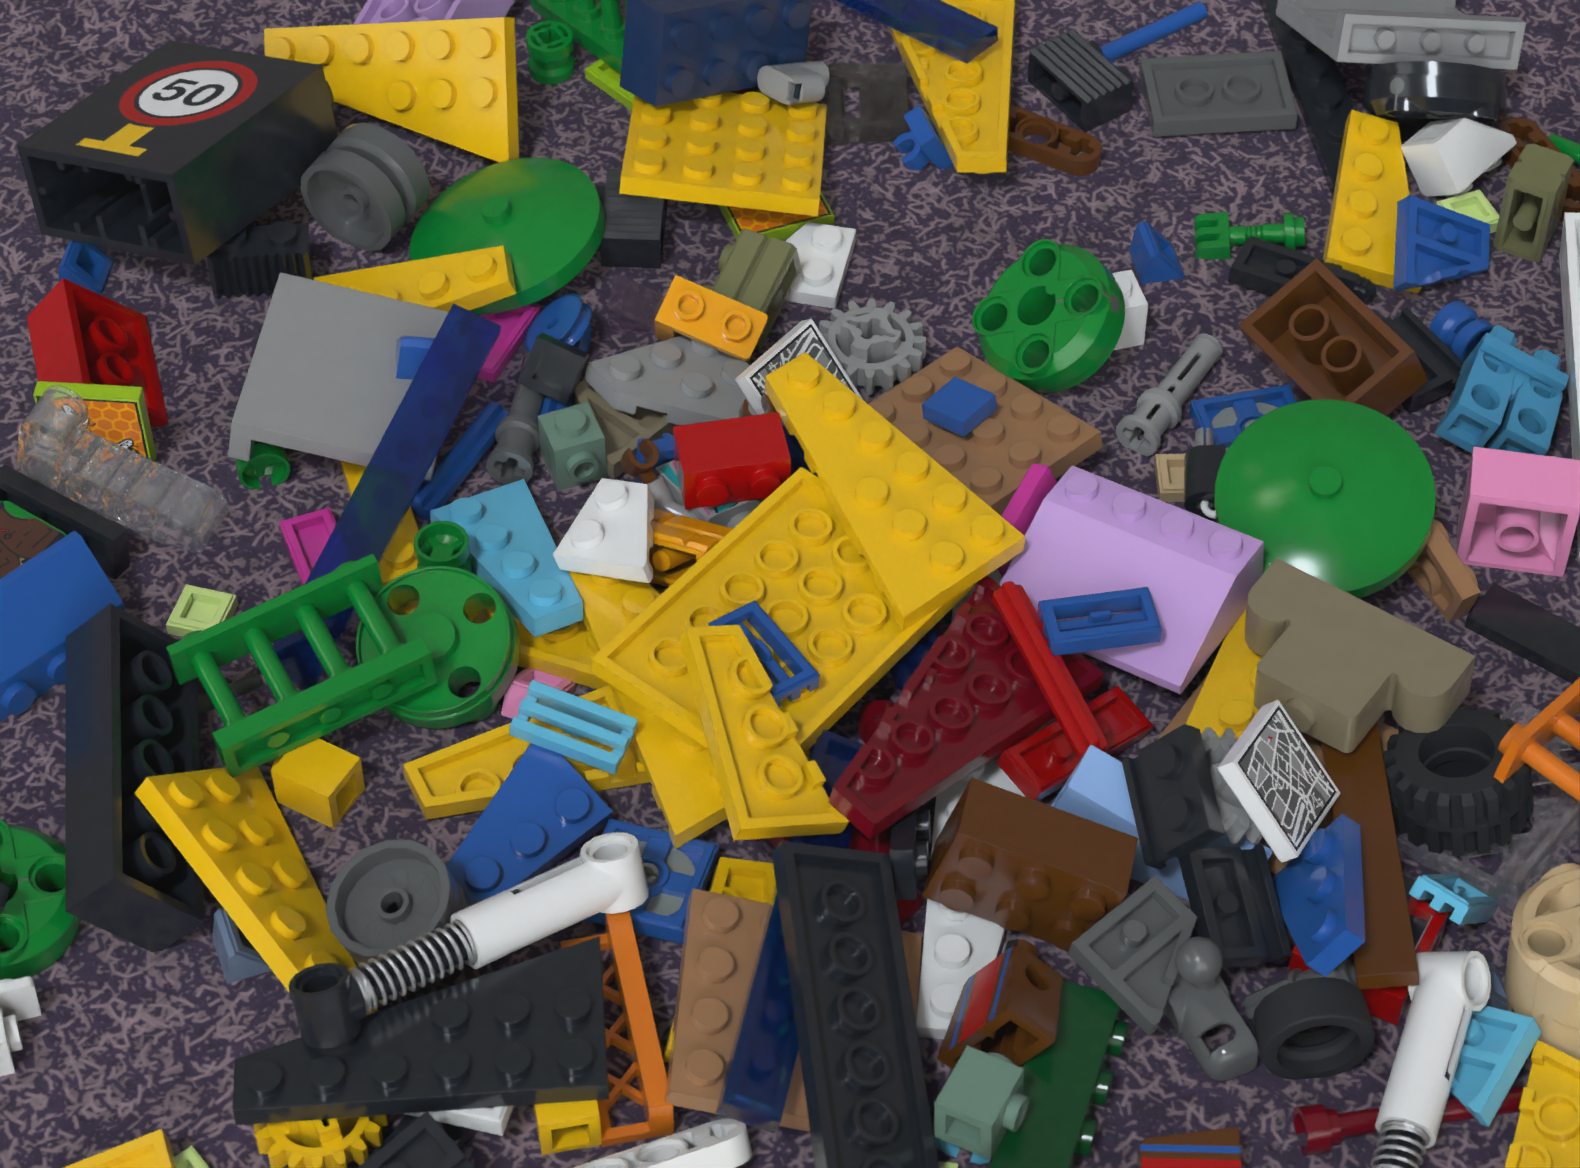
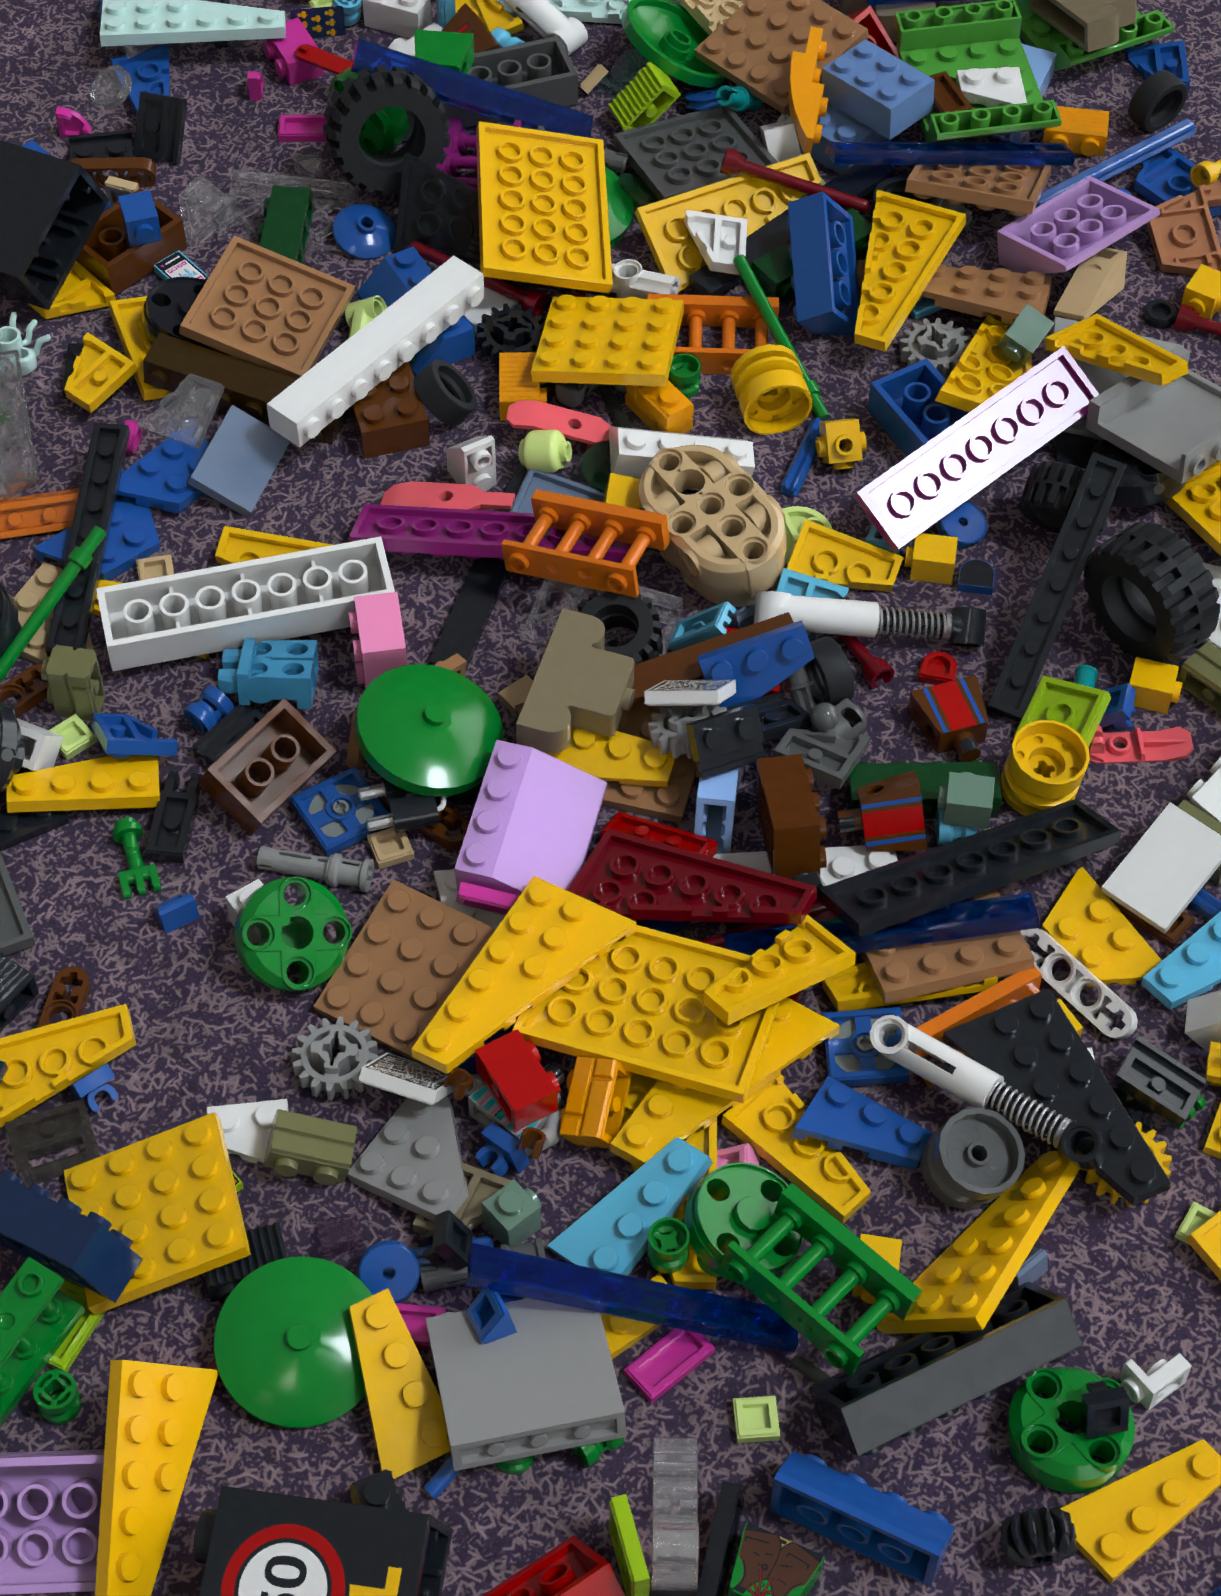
camera: 110 degrees left, 5 degrees up
(365, 186) = (292, 1455): dark grey wheel -> none
(576, 718) = (789, 1077): medium azure tile -> none
(611, 533) = (614, 1130): white wing -> none
(709, 319) = (360, 1164): light orange bracket -> none
(794, 81) = (69, 1180): light grey piece -> none
(803, 671) = (680, 1017): blue tile -> none
(959, 406) = (400, 967): blue tile -> none
(1048, 670) = (633, 844): red axle -> none
(1101, 628) = (603, 842): blue tile -> none

